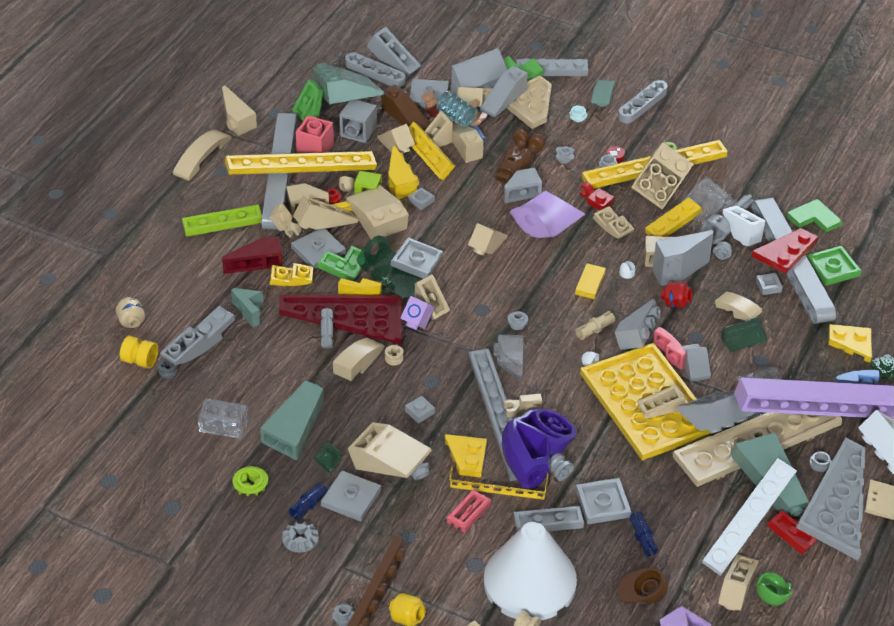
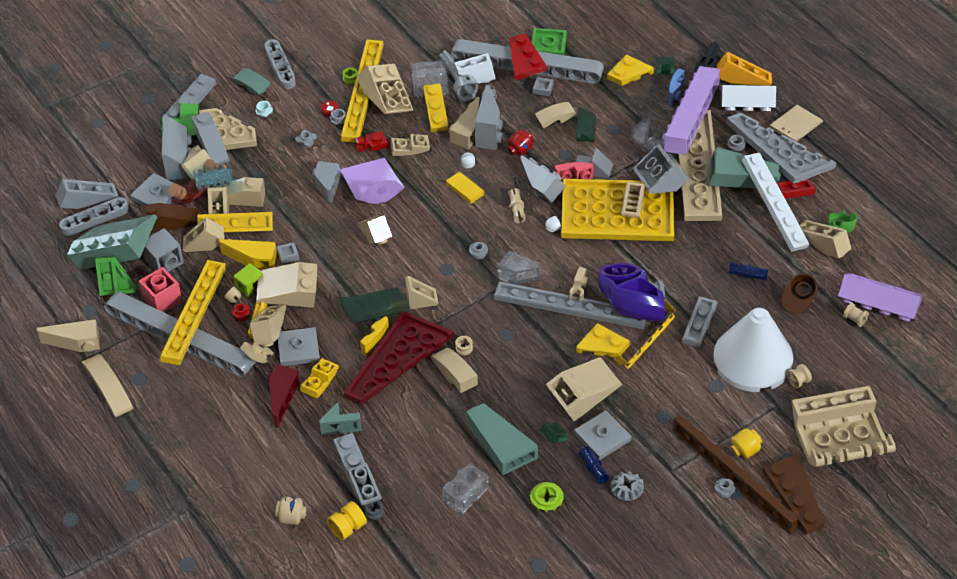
camera: 60 degrees left, 5 degrees up
(222, 220) = (213, 401): lime plate -> none
(296, 192) = (233, 328): tan slope -> none
(326, 328) = (409, 376): light grey axle -> none
(341, 267) = (336, 335): bright green tile -> none
(417, 258) = (361, 284): light grey tile -> none
(417, 313) = (434, 308): lavender brick -> none
(420, 409) = (535, 353): light grey plate -> none
(474, 515) = (663, 379): coral tile -> none
(519, 155) = (289, 171): reddish brown piece -> none
(603, 501) = (703, 280): light grey plate -> none
(814, 212) = (485, 25): tile -> none

